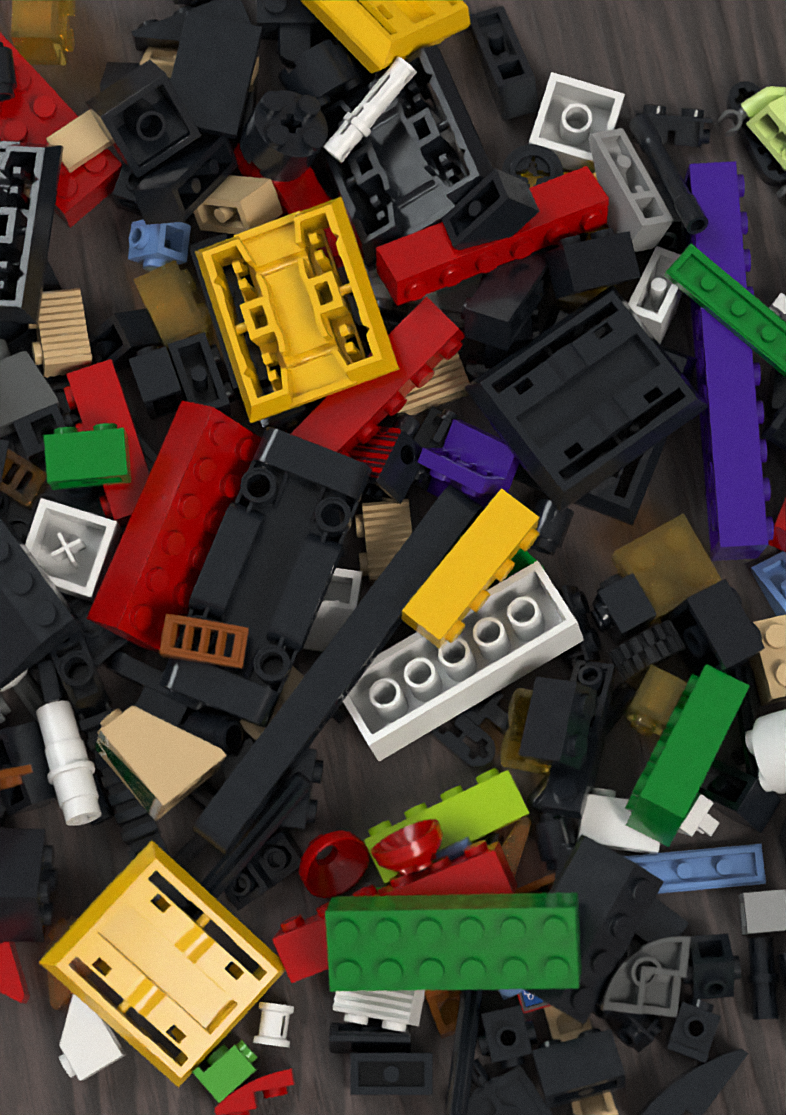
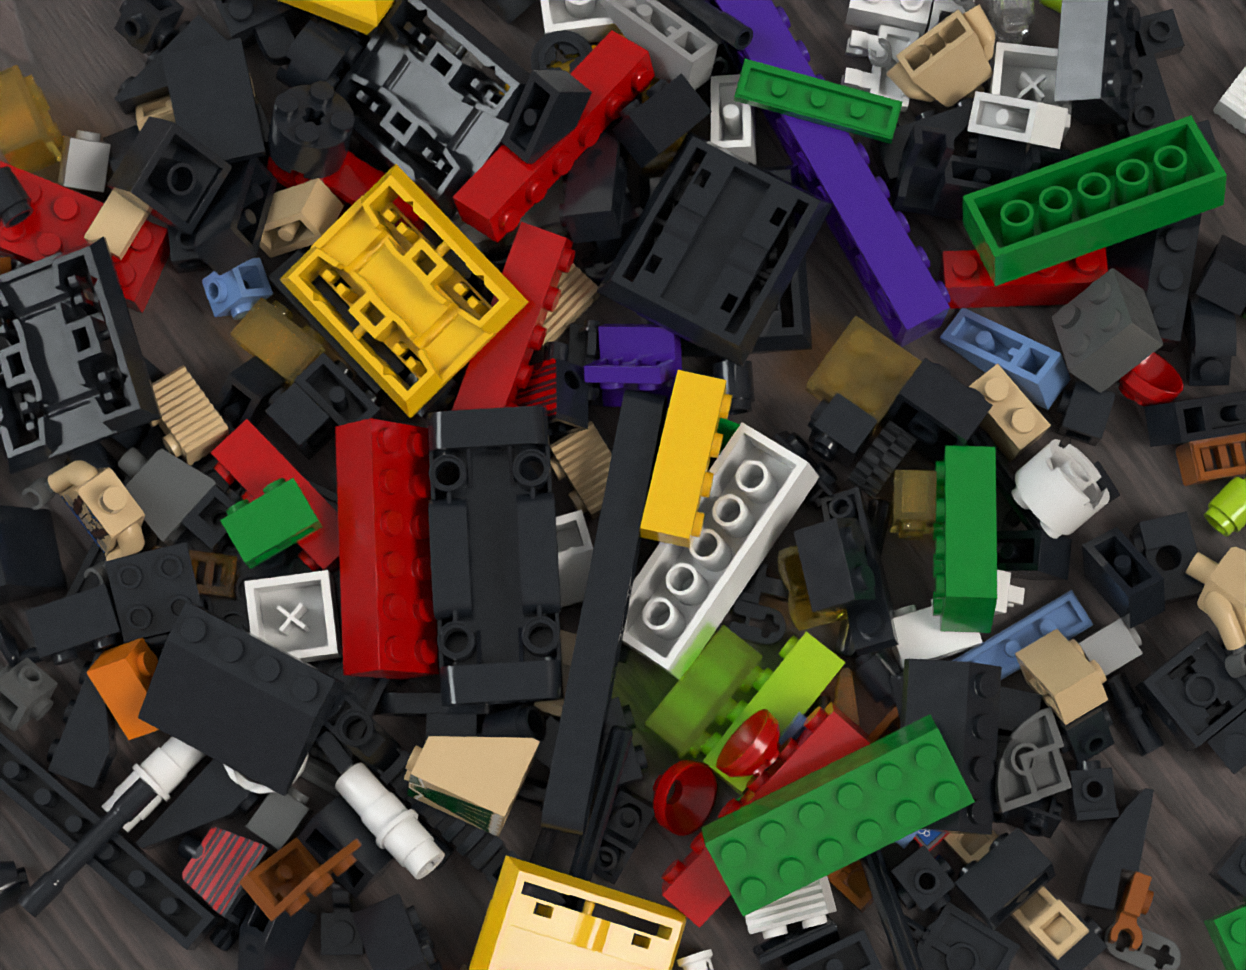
camera: 25 degrees left, 0 degrees up
(80, 74) = (84, 161): none -> light grey brick
(168, 648) = (433, 654): dark orange slope -> none
(368, 111) = (380, 77): white pin -> none
(393, 782) = (705, 694): none -> clear neon green brick
(715, 915) = (1062, 675): none -> tan brick

